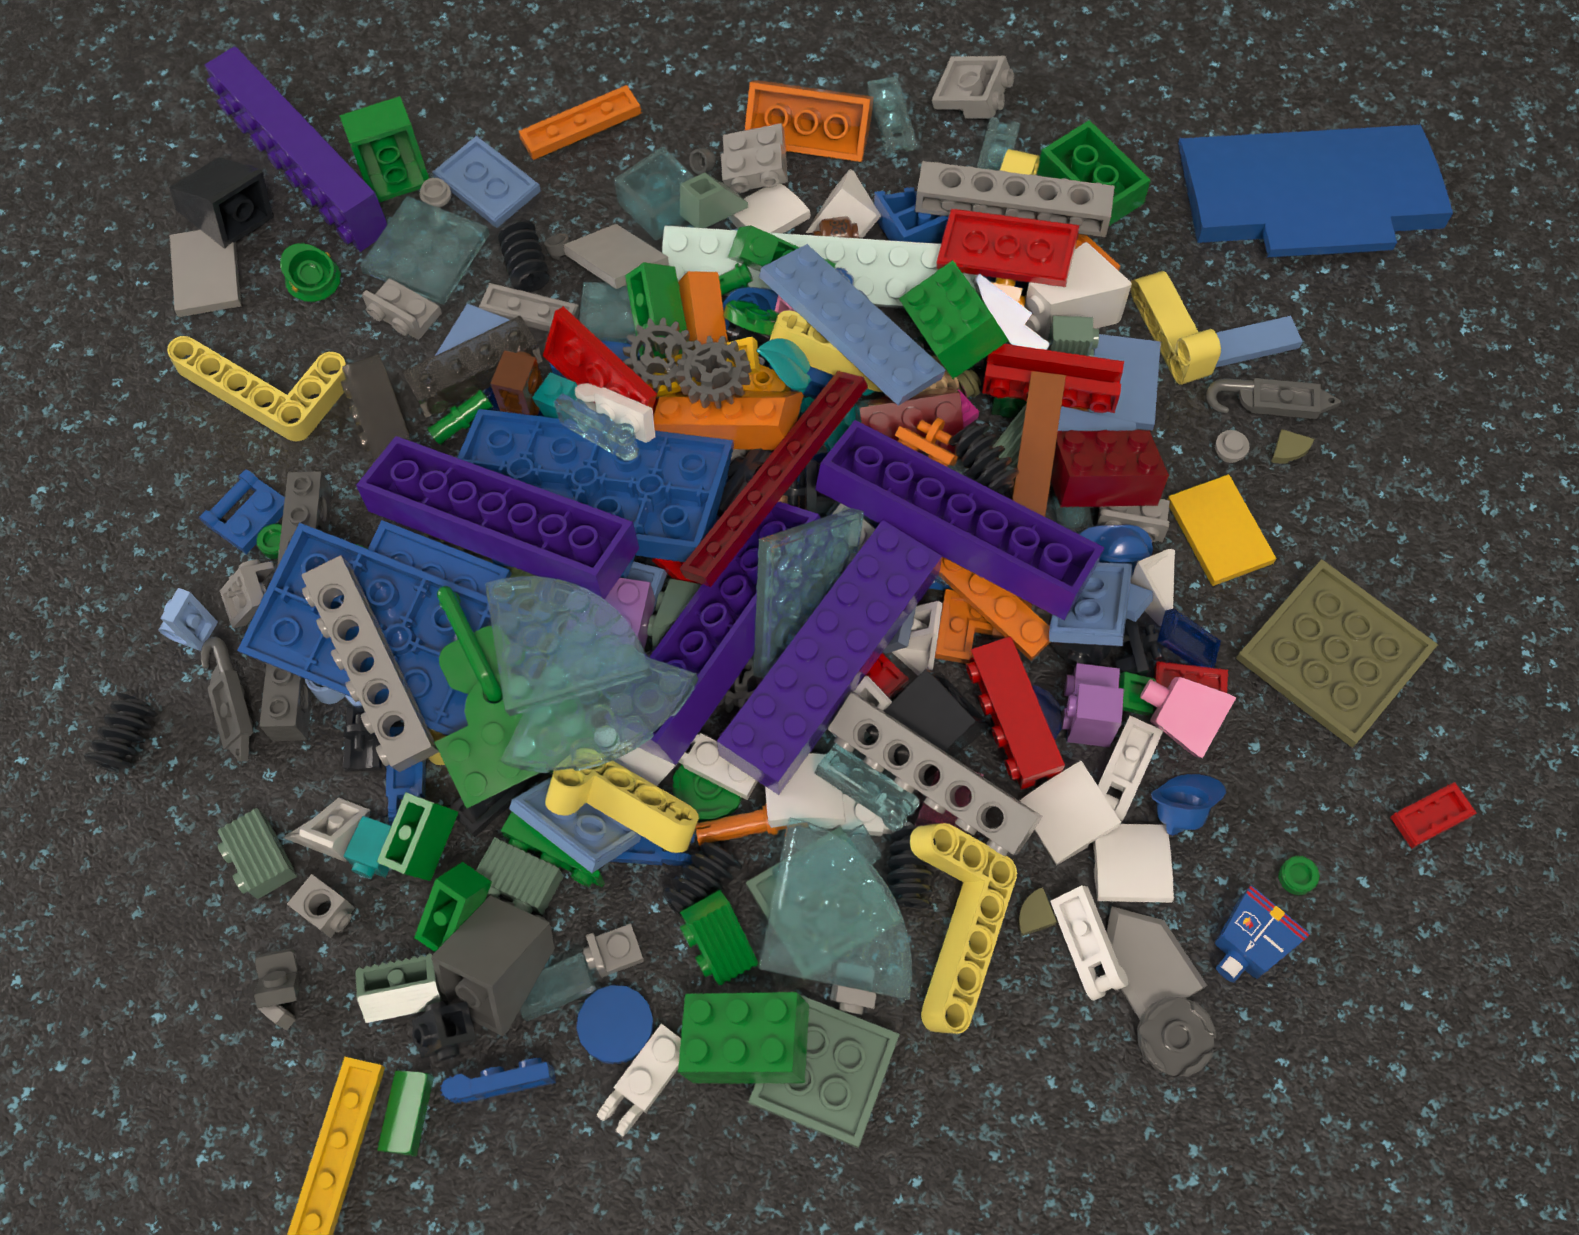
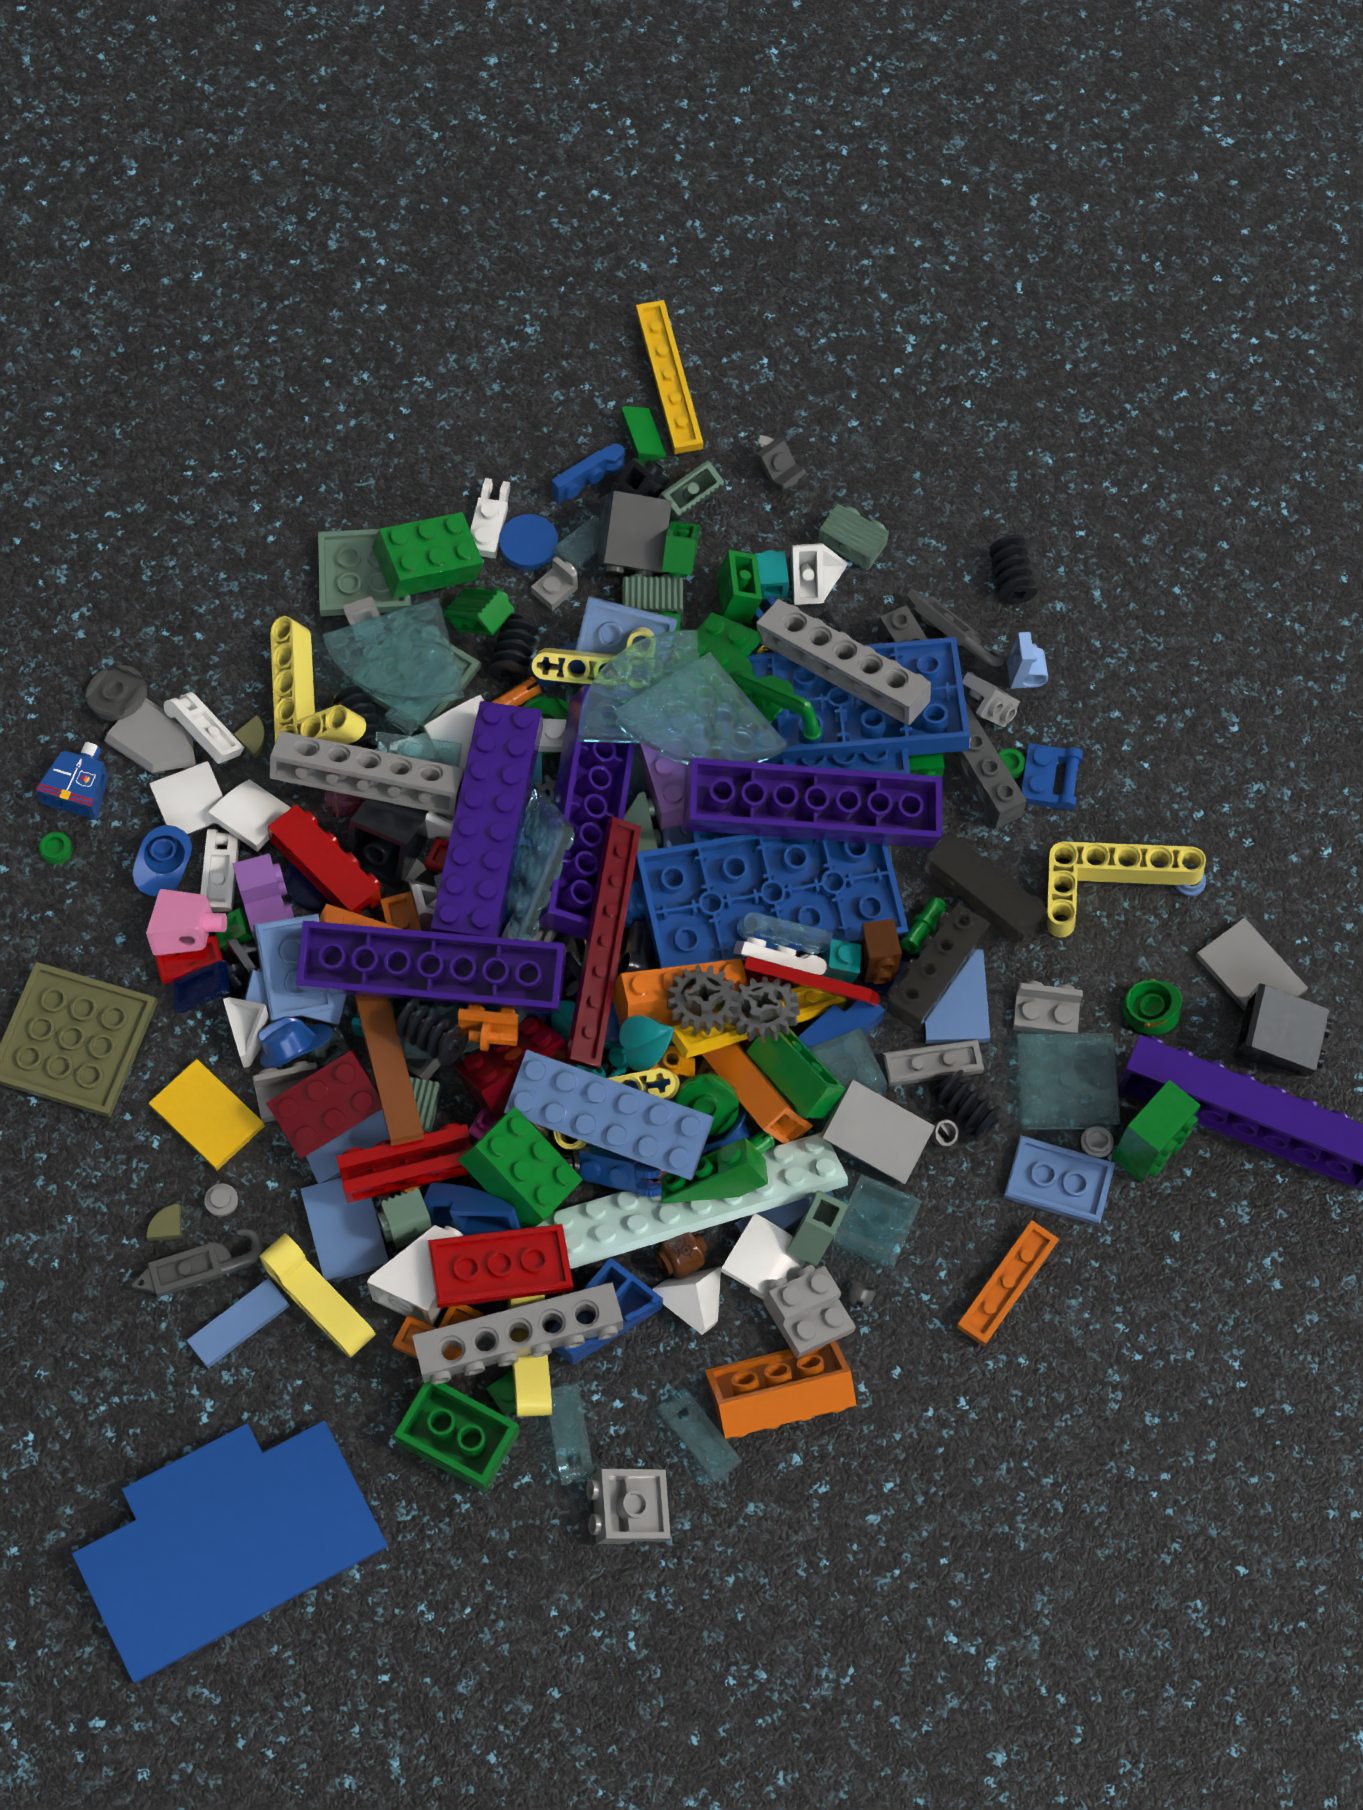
camera: 150 degrees right, 0 degrees up
(311, 896) = (782, 512): light grey brick -> none

